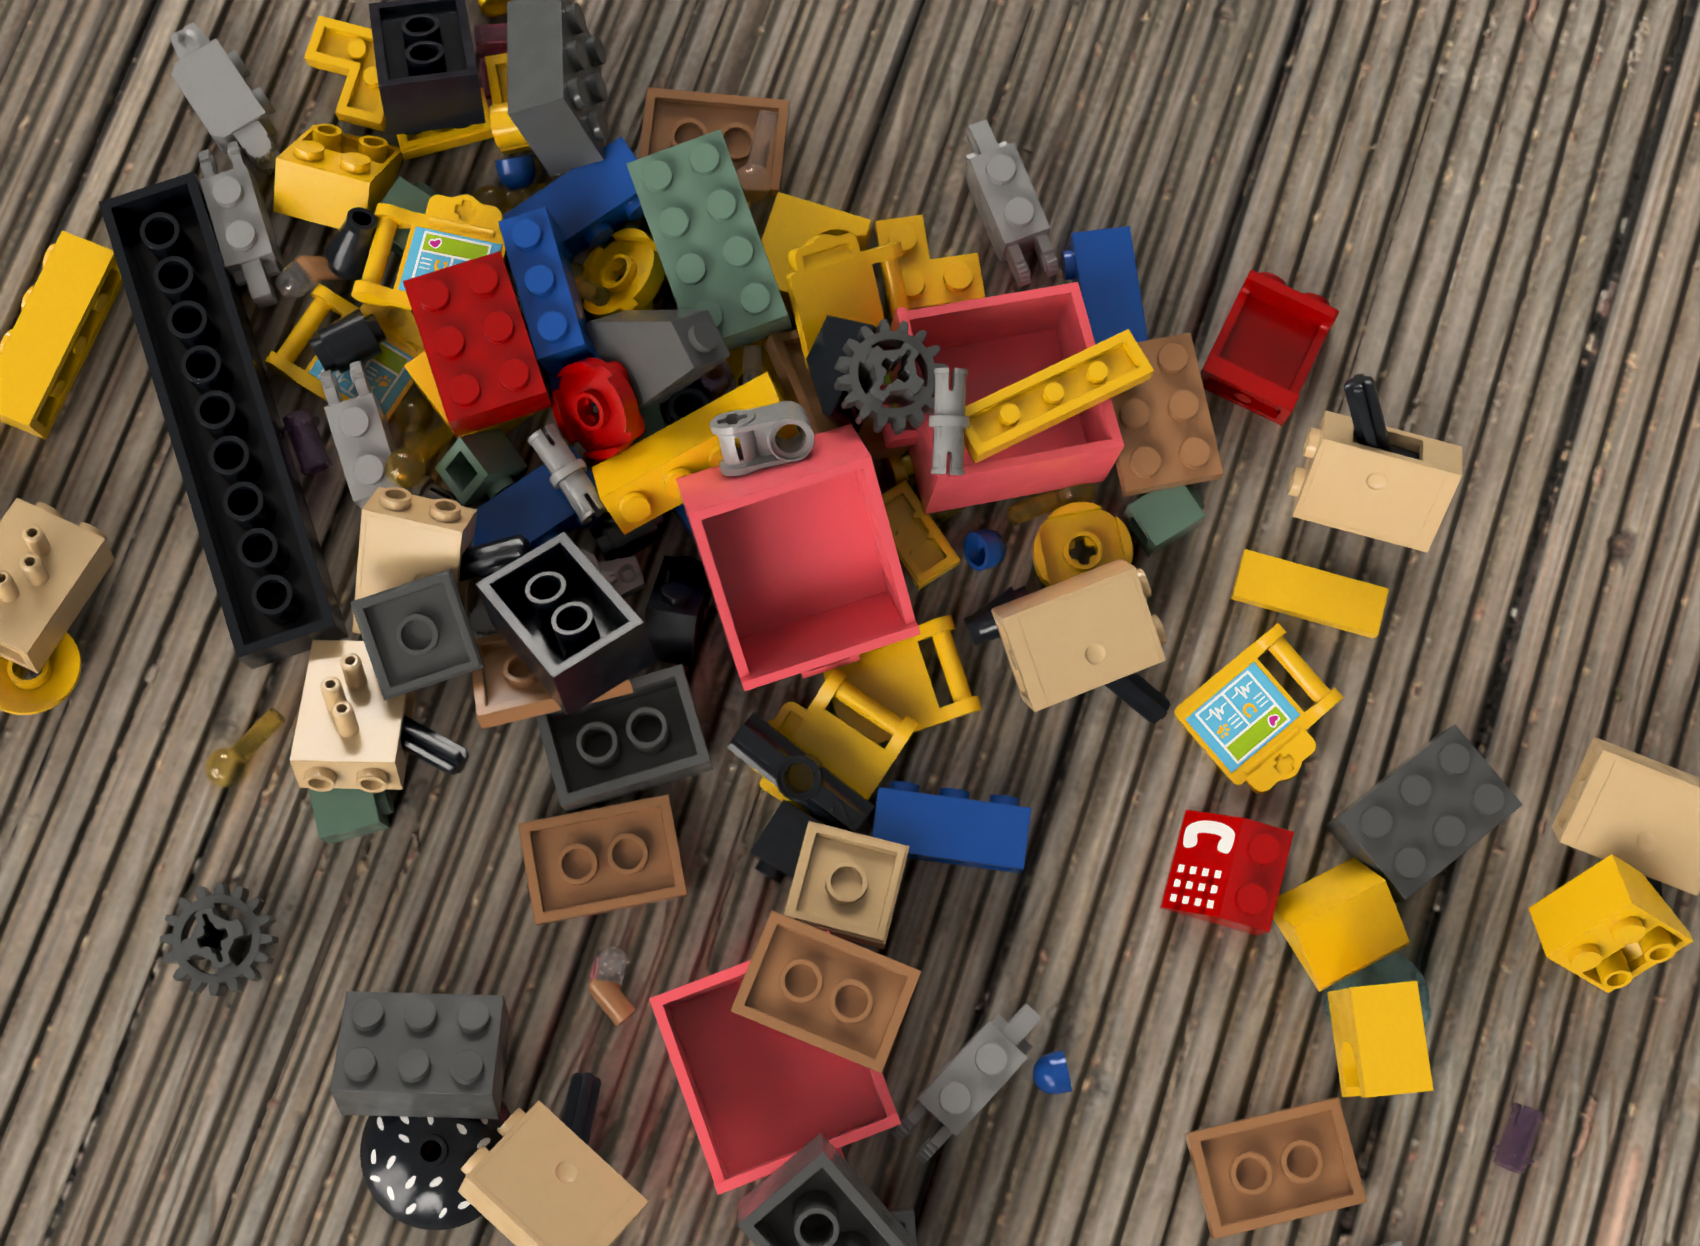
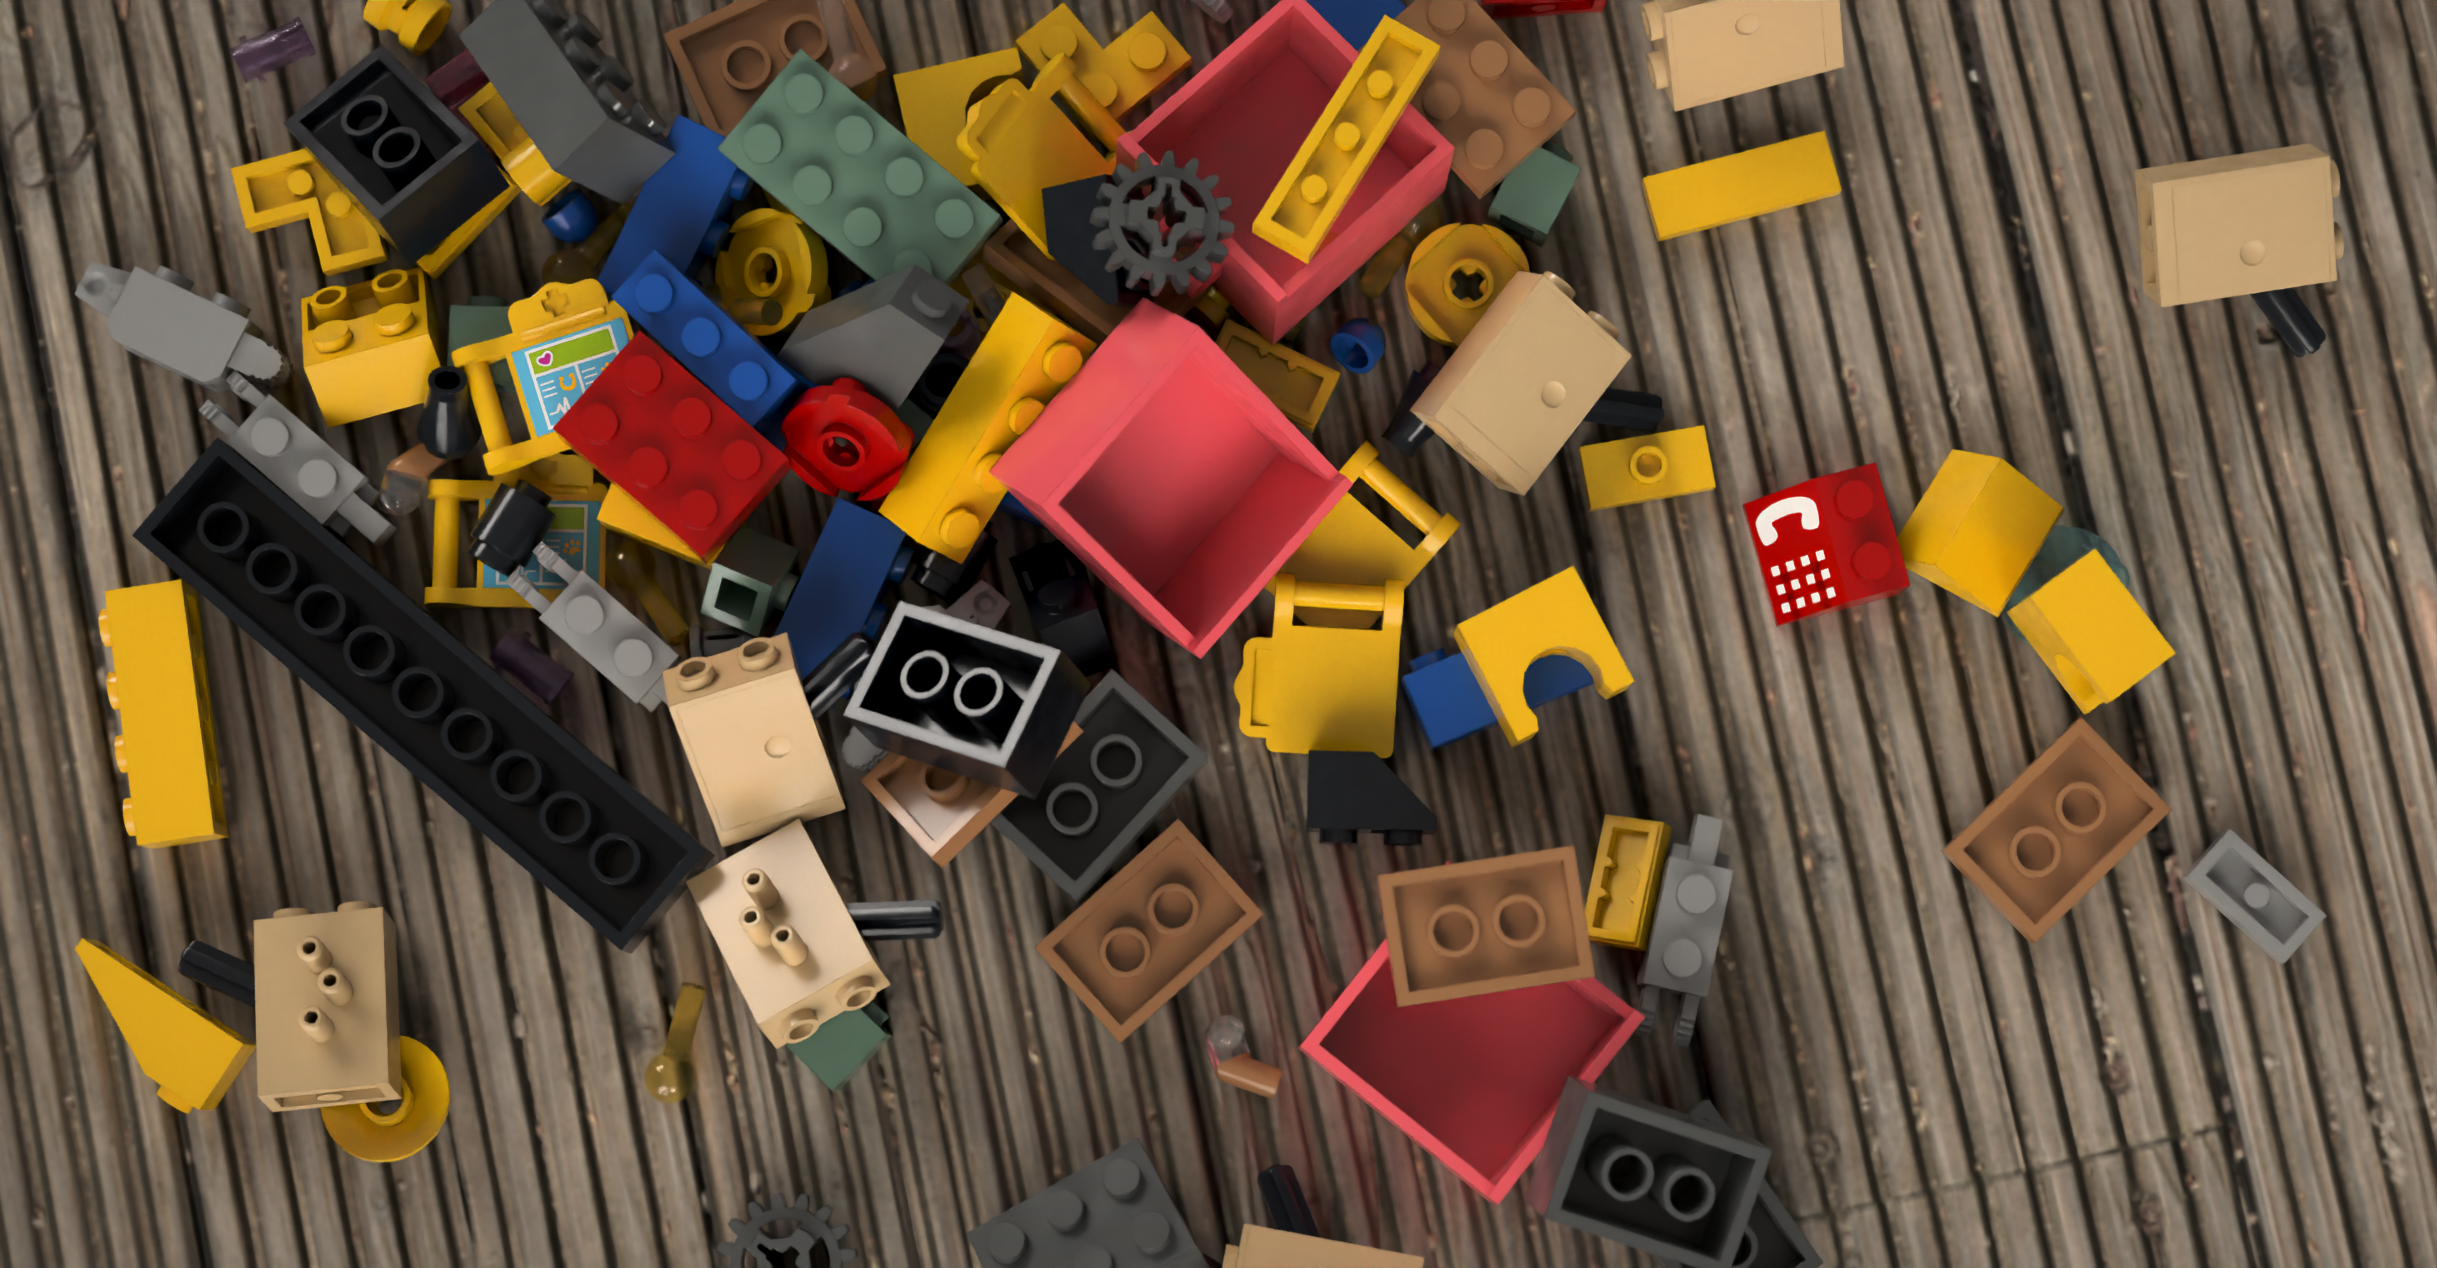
camera: 30 degrees left, 5 degrees up
(407, 466) = (670, 628): clear yellow bar -> none
(417, 634) = (809, 806): dark grey tile -> none
(567, 473) = (857, 532): light grey pin -> none
(758, 437) = (1059, 374): light grey piece -> none
(773, 756) = (1354, 720): black piece -> none
(847, 884) = (1434, 800): tan tile -> none
(949, 421) = (1257, 237): light grey pin -> none
(949, 1022) = (1626, 881): none -> yellow plate
(987, 803) = (1531, 625): none -> yellow piece
(1052, 1073) = (1766, 871): blue hinge -> none
(1132, 746) = (1646, 468): none -> yellow plate
(1250, 719) = (1758, 364): piece -> none
(1425, 813) = (2001, 358): dark grey brick -> none
(1518, 1139) = (2292, 648): clear purple pin -> none
(1608, 925) = (2260, 366): yellow slope -> none

